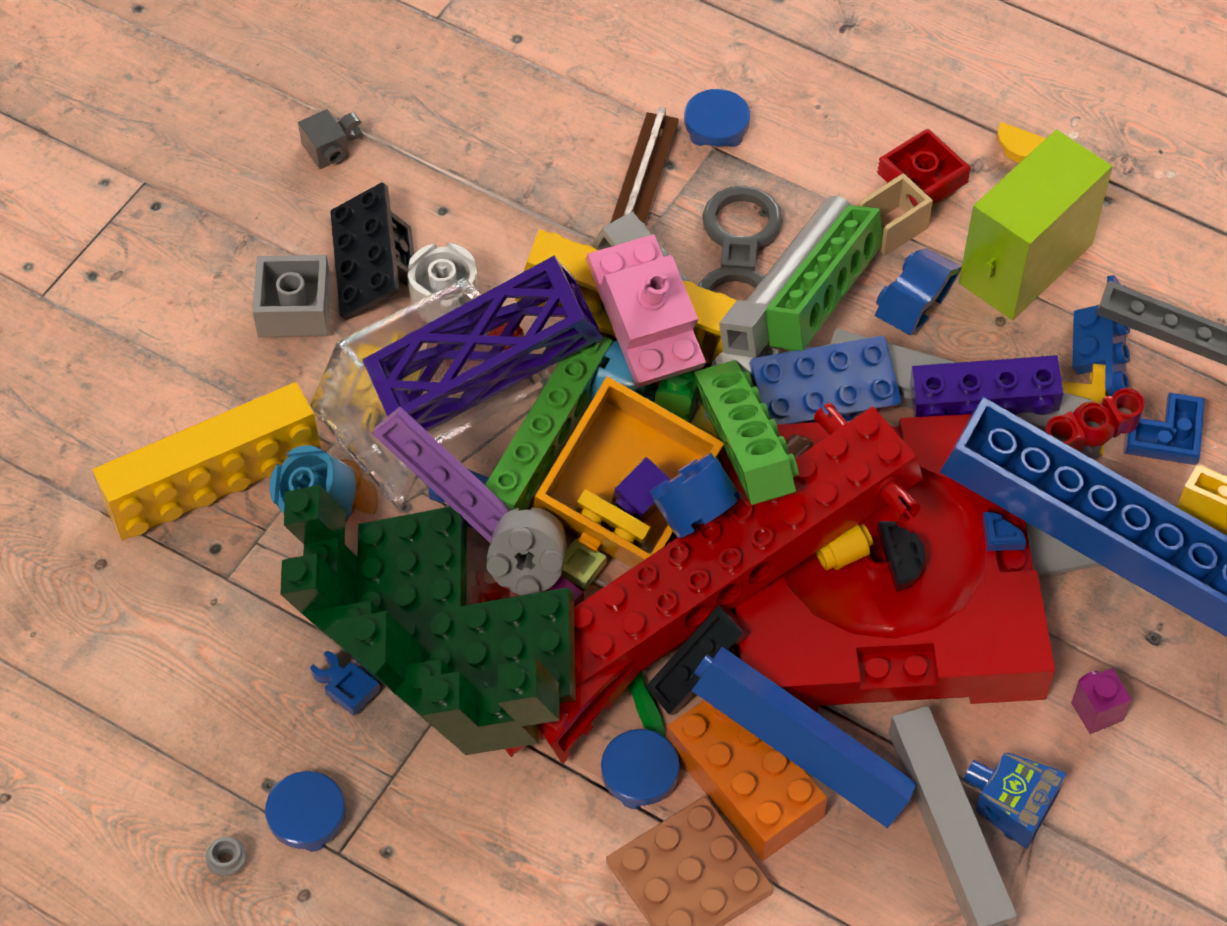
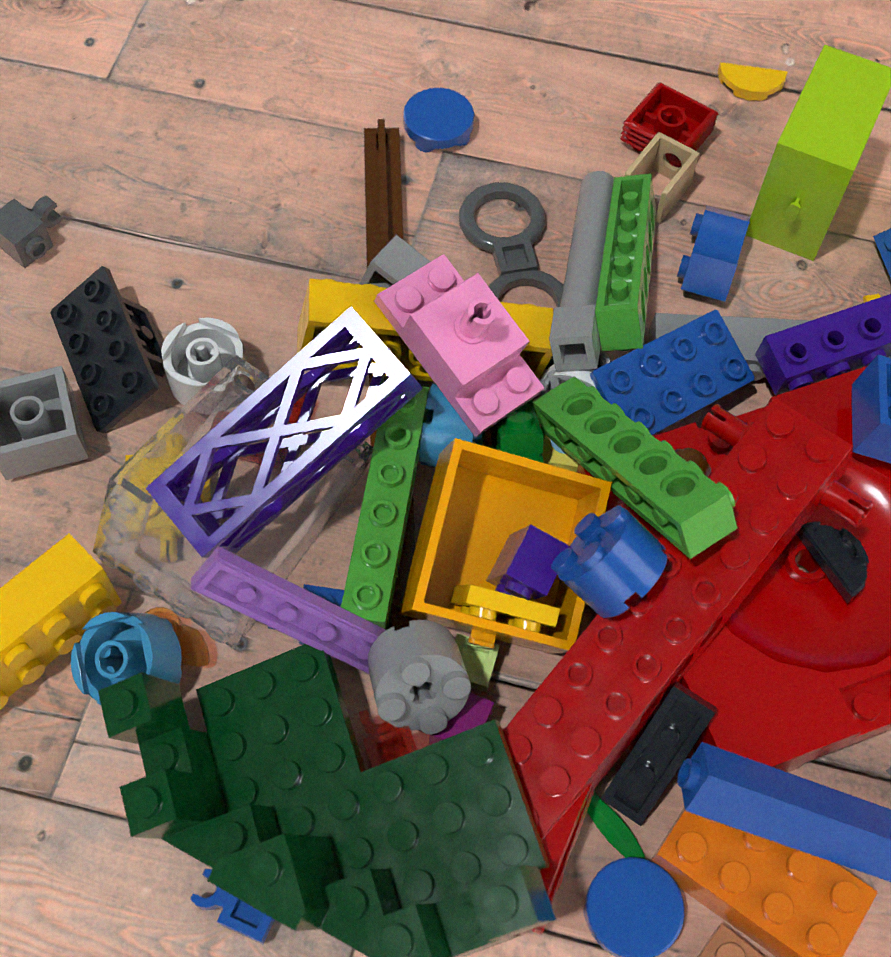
camera: 20 degrees left, 5 degrees up
(846, 548) = (783, 570): yellow brick -> none

